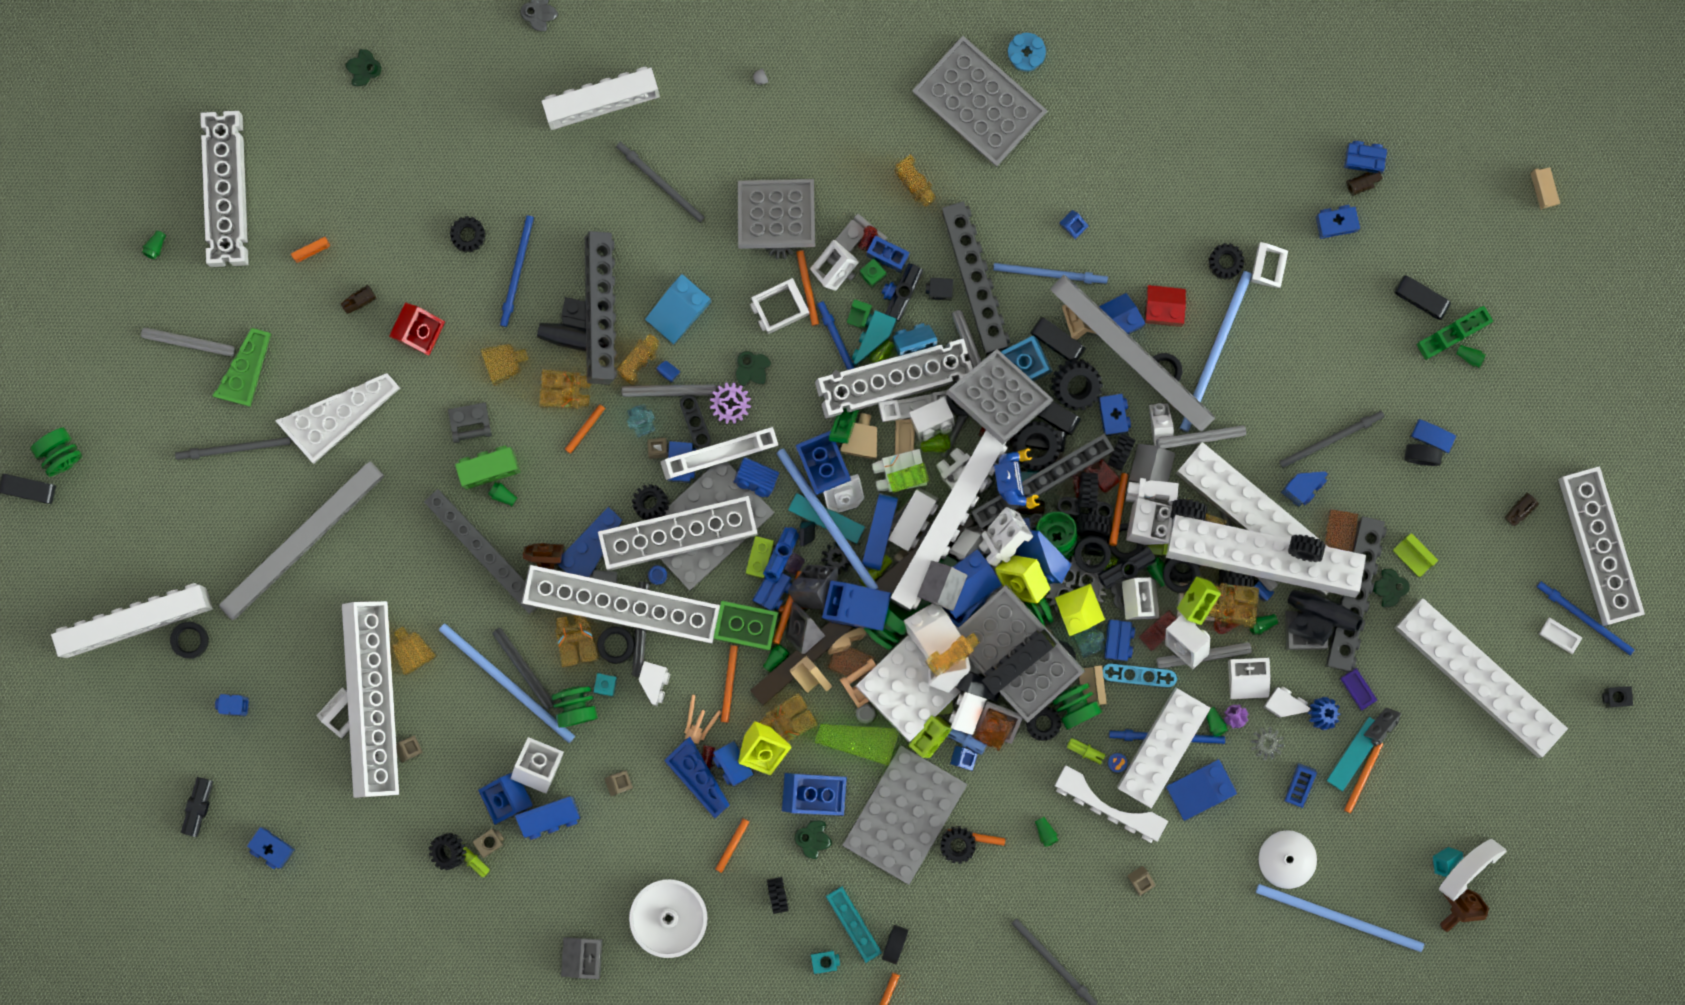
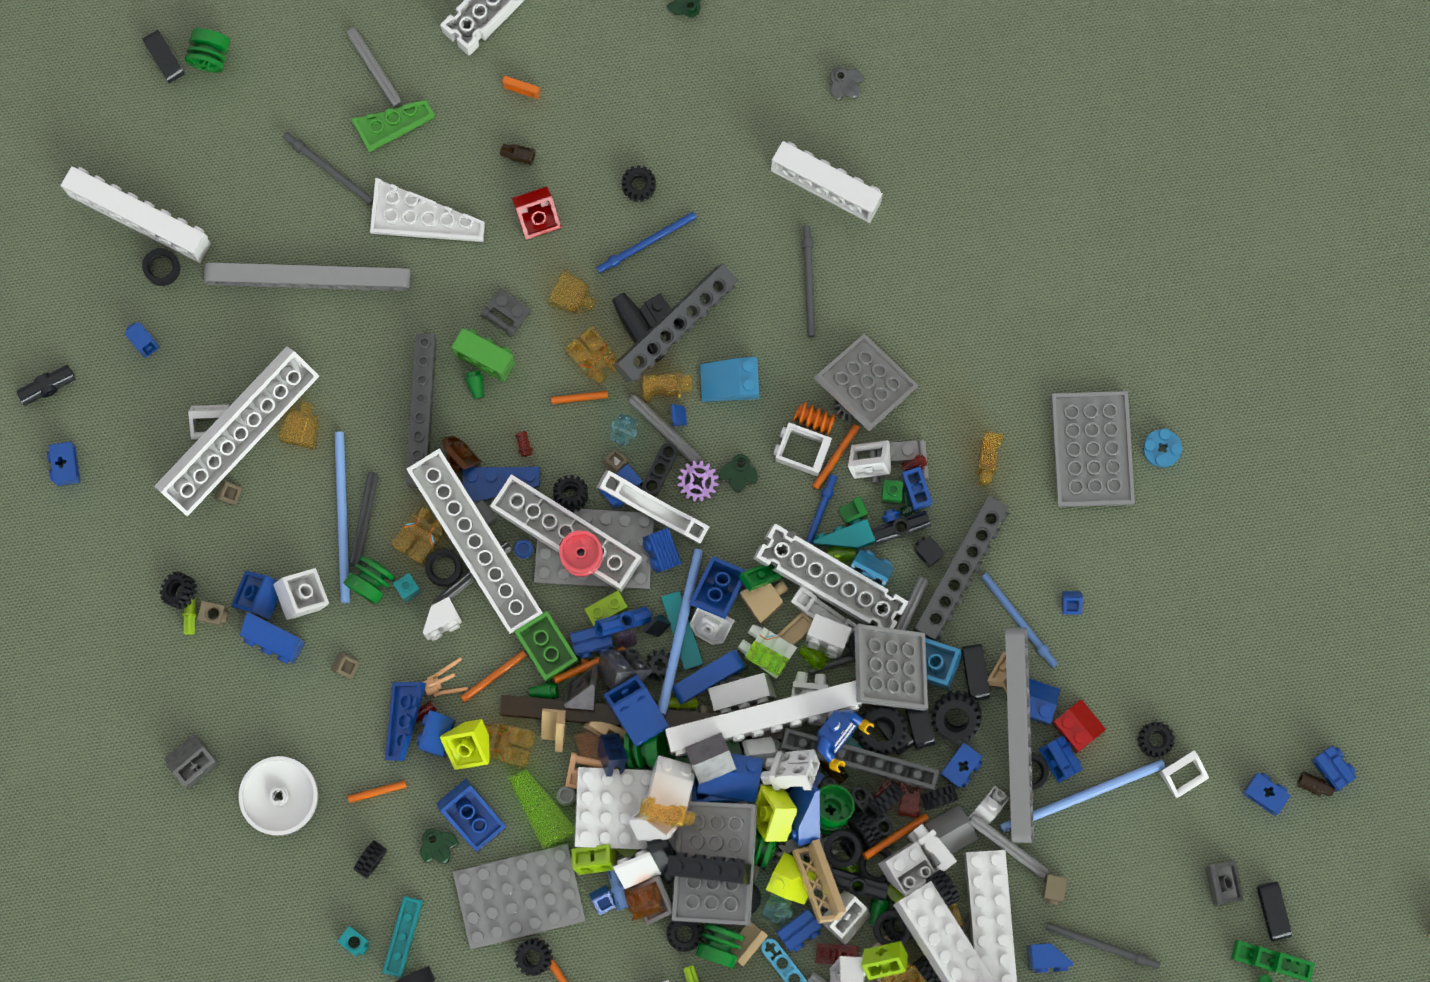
camera: 45 degrees right, 5 degrees down
(580, 501) = (523, 443): none -> clear red pin
(706, 548) = (581, 565): none -> coral wheel
(760, 77) = (953, 278): light grey hinge -> none
(765, 275) = (814, 418): none -> orange piece
(869, 652) = (611, 753): none -> dark blue hinge
(895, 275) = (906, 510): none -> clear green hand
(1104, 588) = (826, 882): none -> tan fence
(1176, 341) = (1060, 759): none -> blue brick
(1261, 434) = (1054, 889): none -> dark tan brick
(1370, 313) = (1224, 883): none -> flat silver slope

